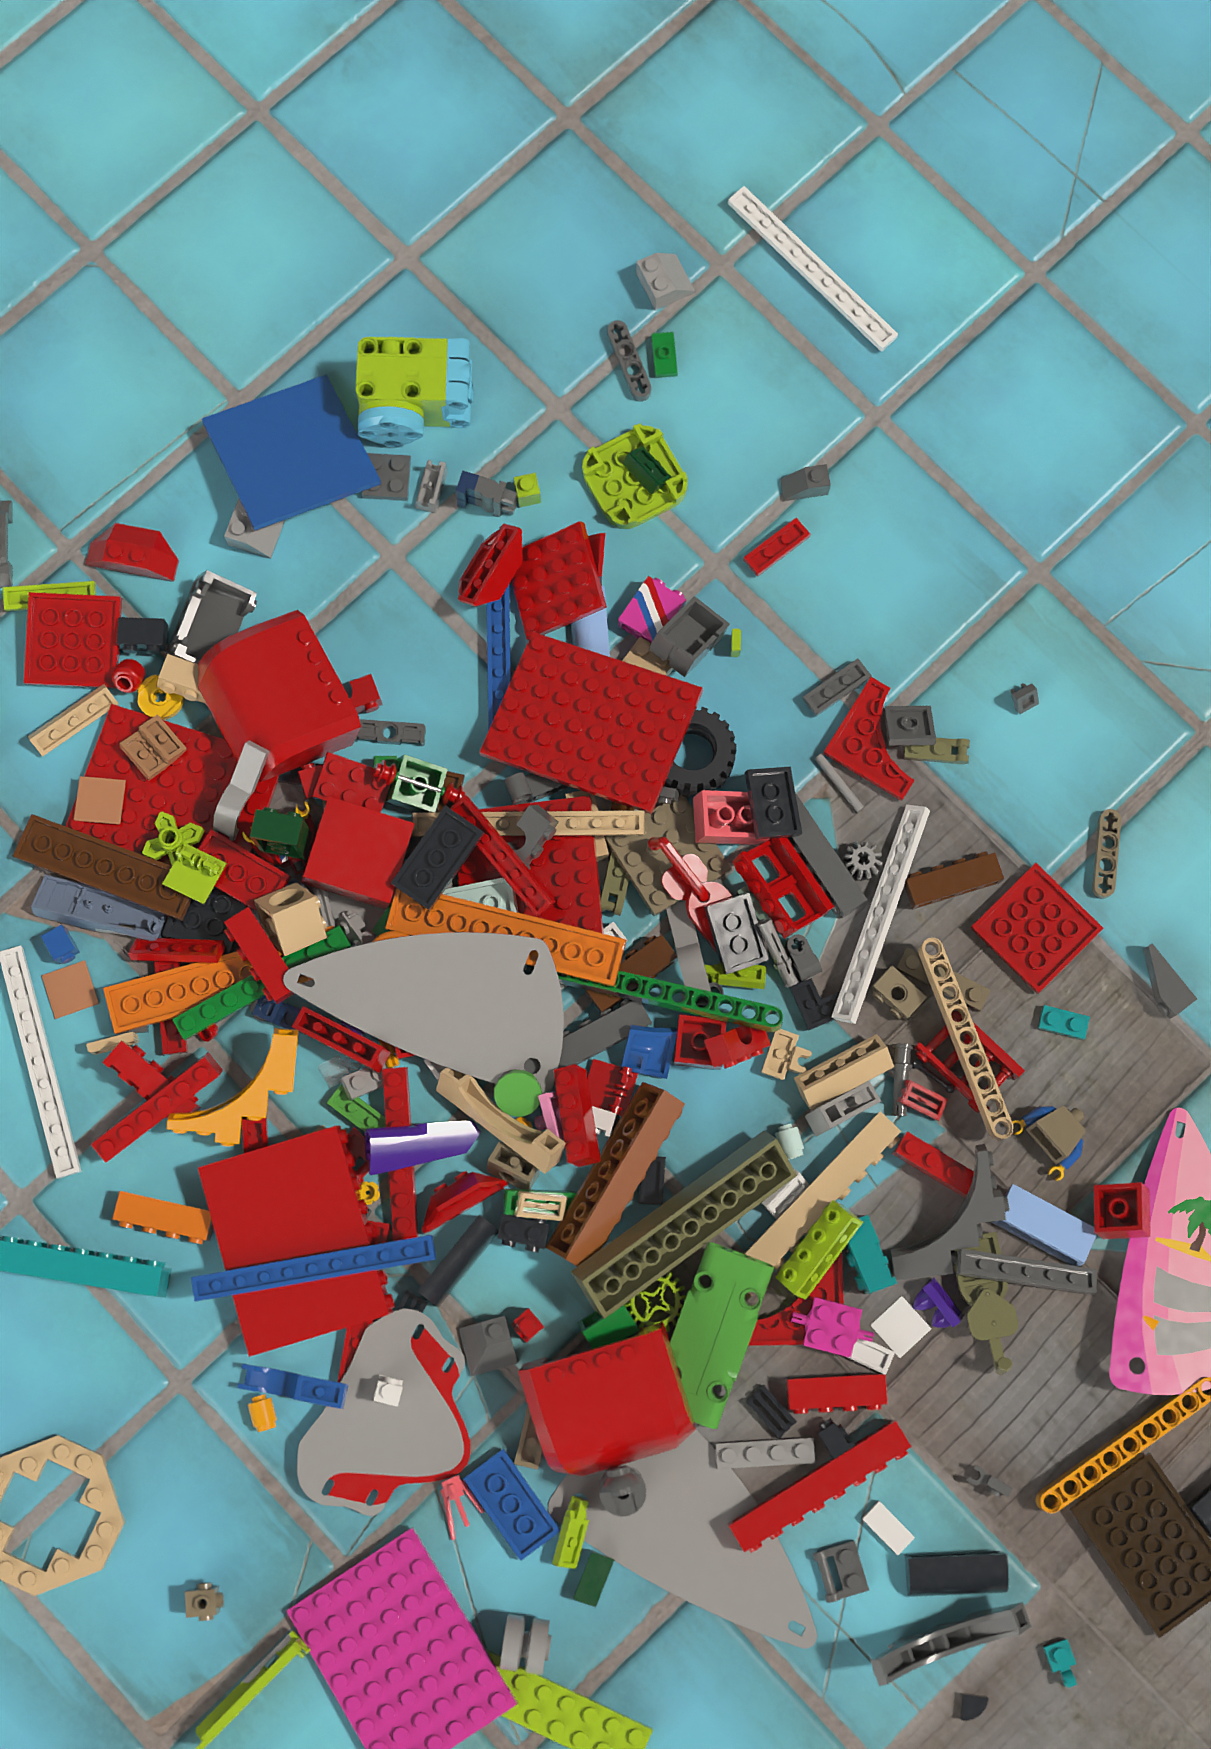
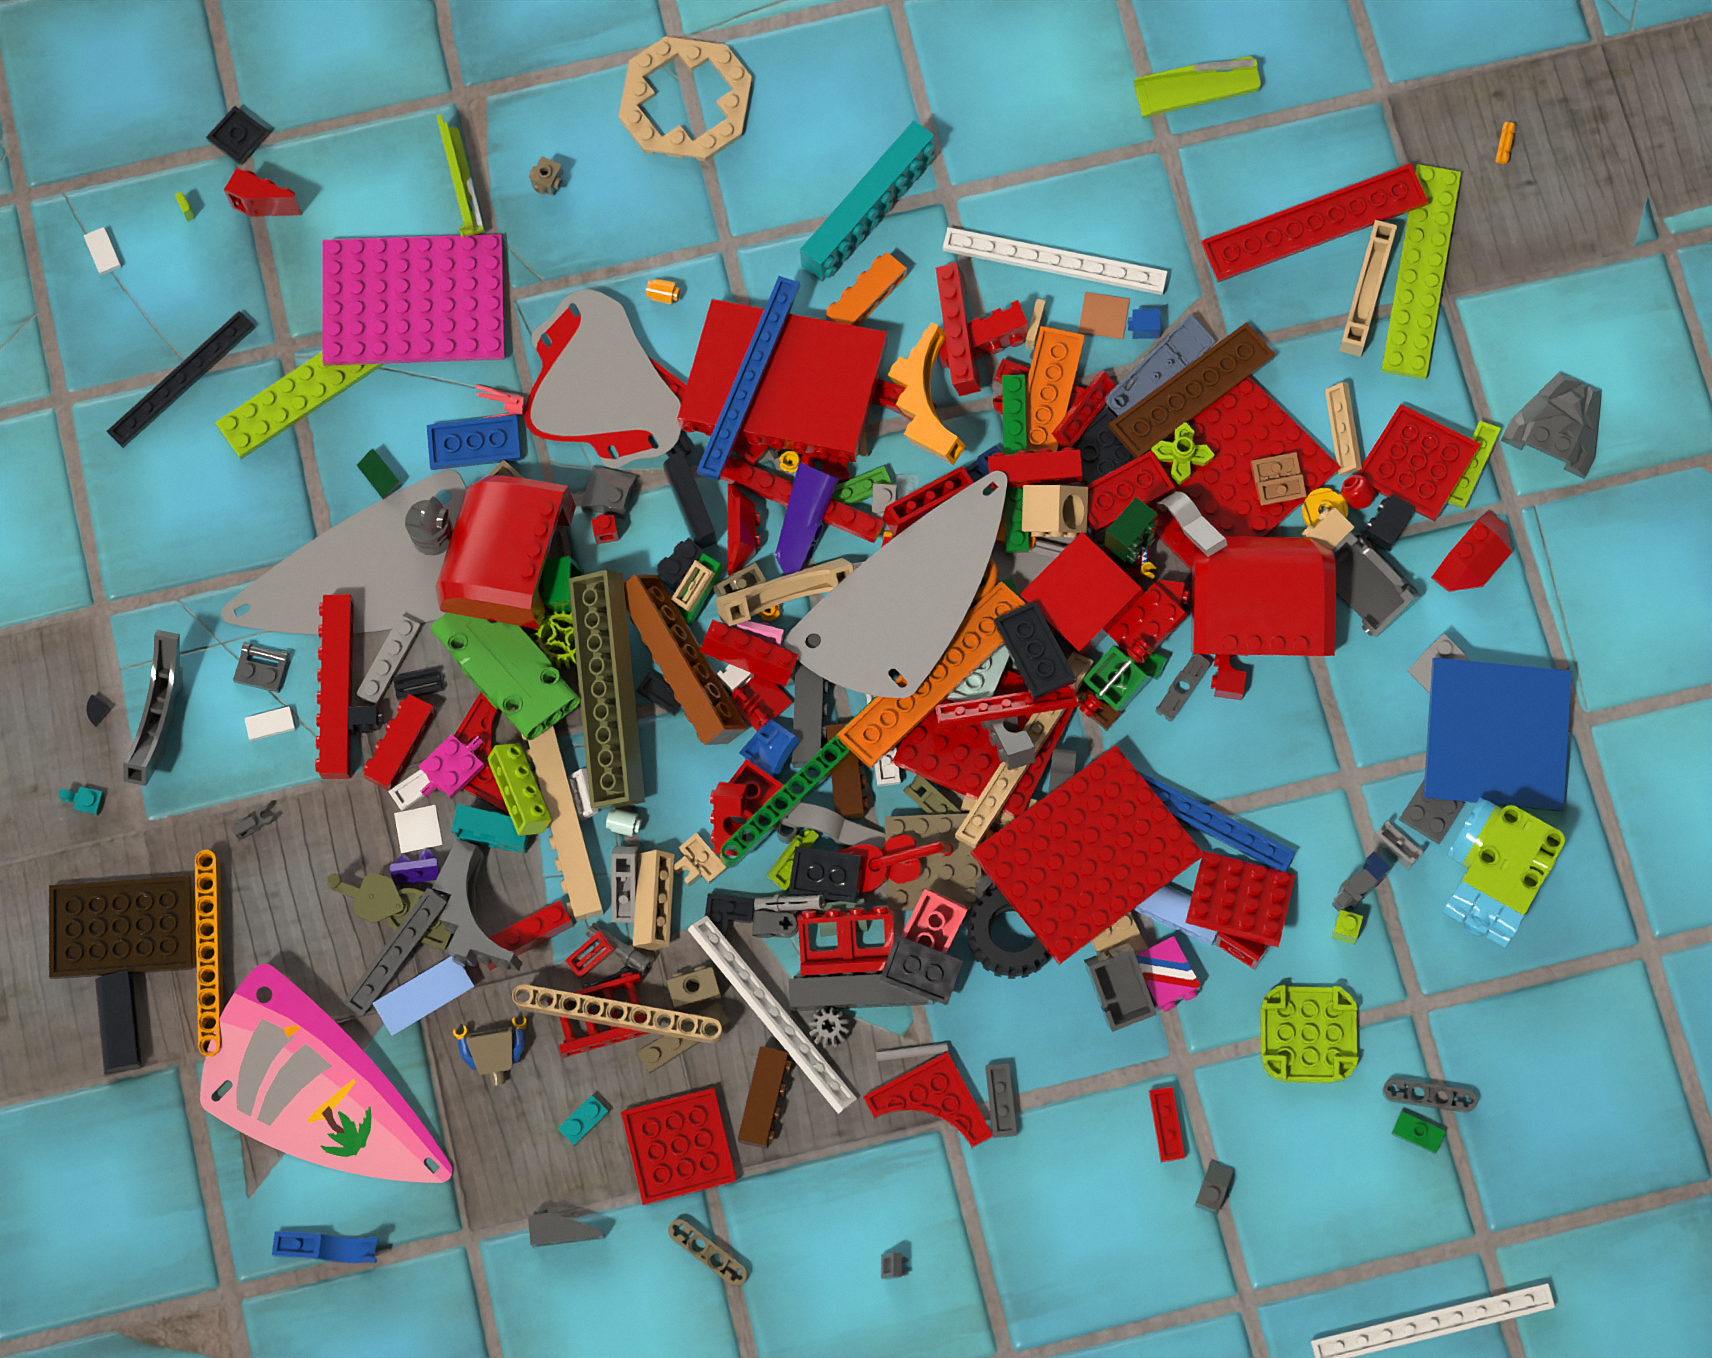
camera: 125 degrees right, 5 degrees down
(99, 800) = (1255, 414): nougat piece -> none
(194, 873) = (1141, 453): lime hinge -> none
(294, 1386) = (663, 328): blue piece -> none
(351, 926) = (1024, 563): light grey hinge -> none
(388, 1390) = (619, 390): white brick -> none
(492, 567) = (1282, 846): red wedge -> none
(517, 1093) = (797, 617): bright green tile -> none
(529, 1645) = (357, 397): light grey wheel -> none
(572, 1534) = (421, 474): lime hinge -> none
(646, 469) = (1308, 1047): dark green slope -> none
(663, 279) = (1496, 1175): light grey slope -> none
(735, 642) = (1094, 1032): lime tile -> none
(909, 725) = (926, 1142): dark grey hinge -> none
(939, 752) = (892, 1157): olive plate -> none
(957, 1574) = (201, 756): black brick -> none
(1122, 1211) = (394, 1061): red brick -> none

